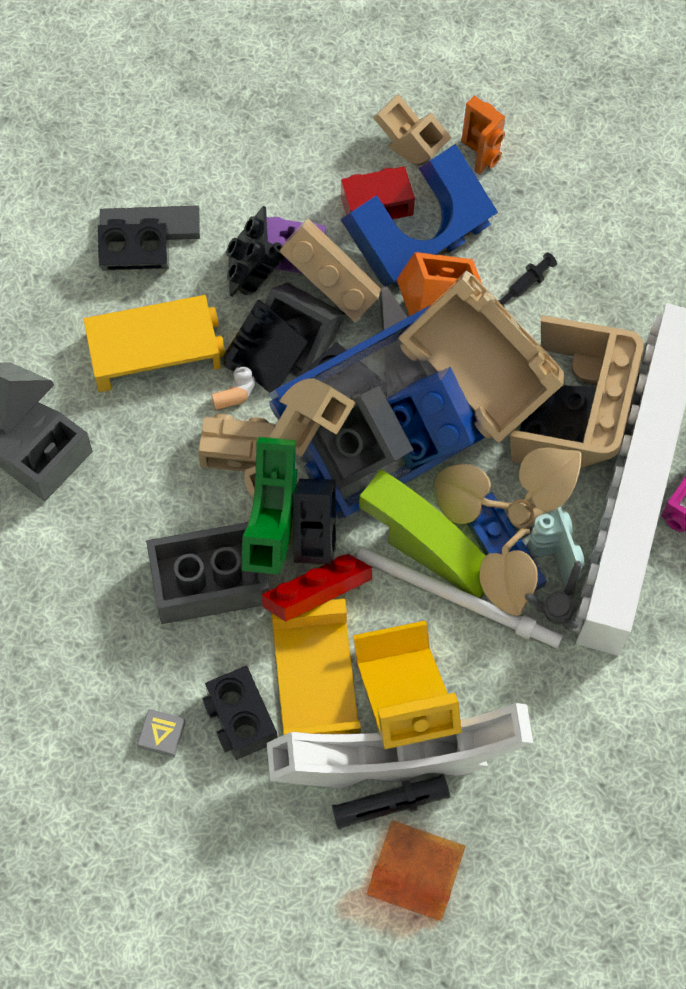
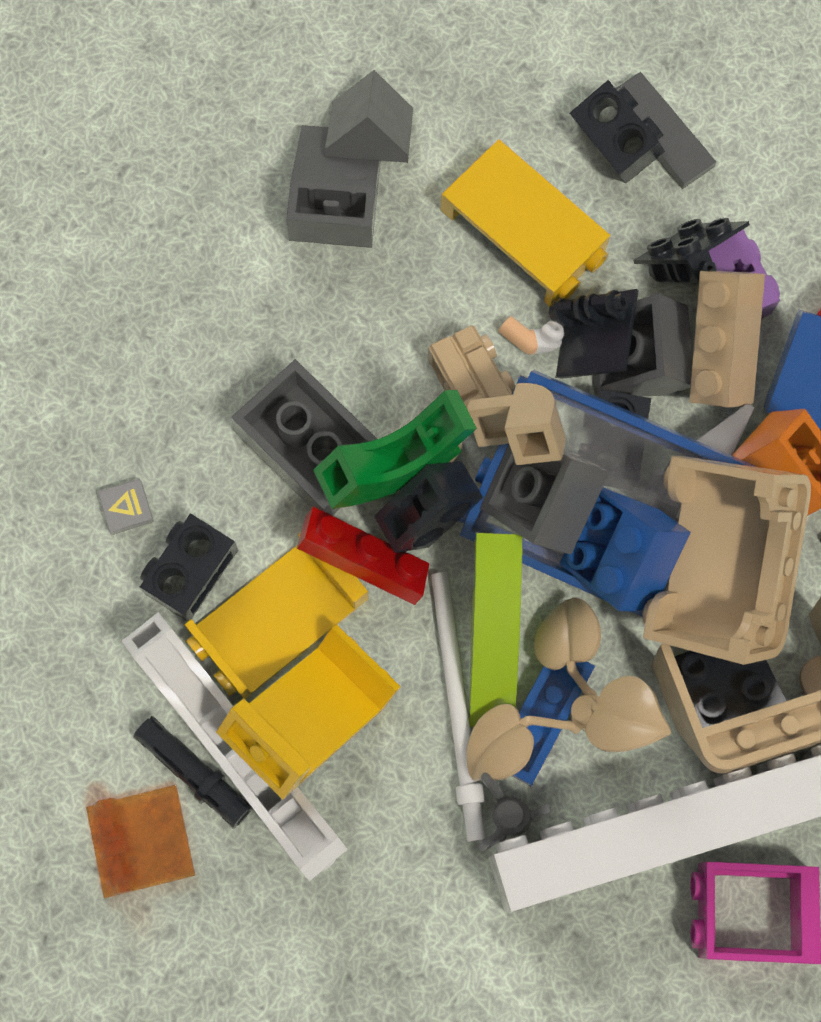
camera: 55 degrees right, 10 degrees up
(553, 536) = (583, 761): light aqua hinge -> none

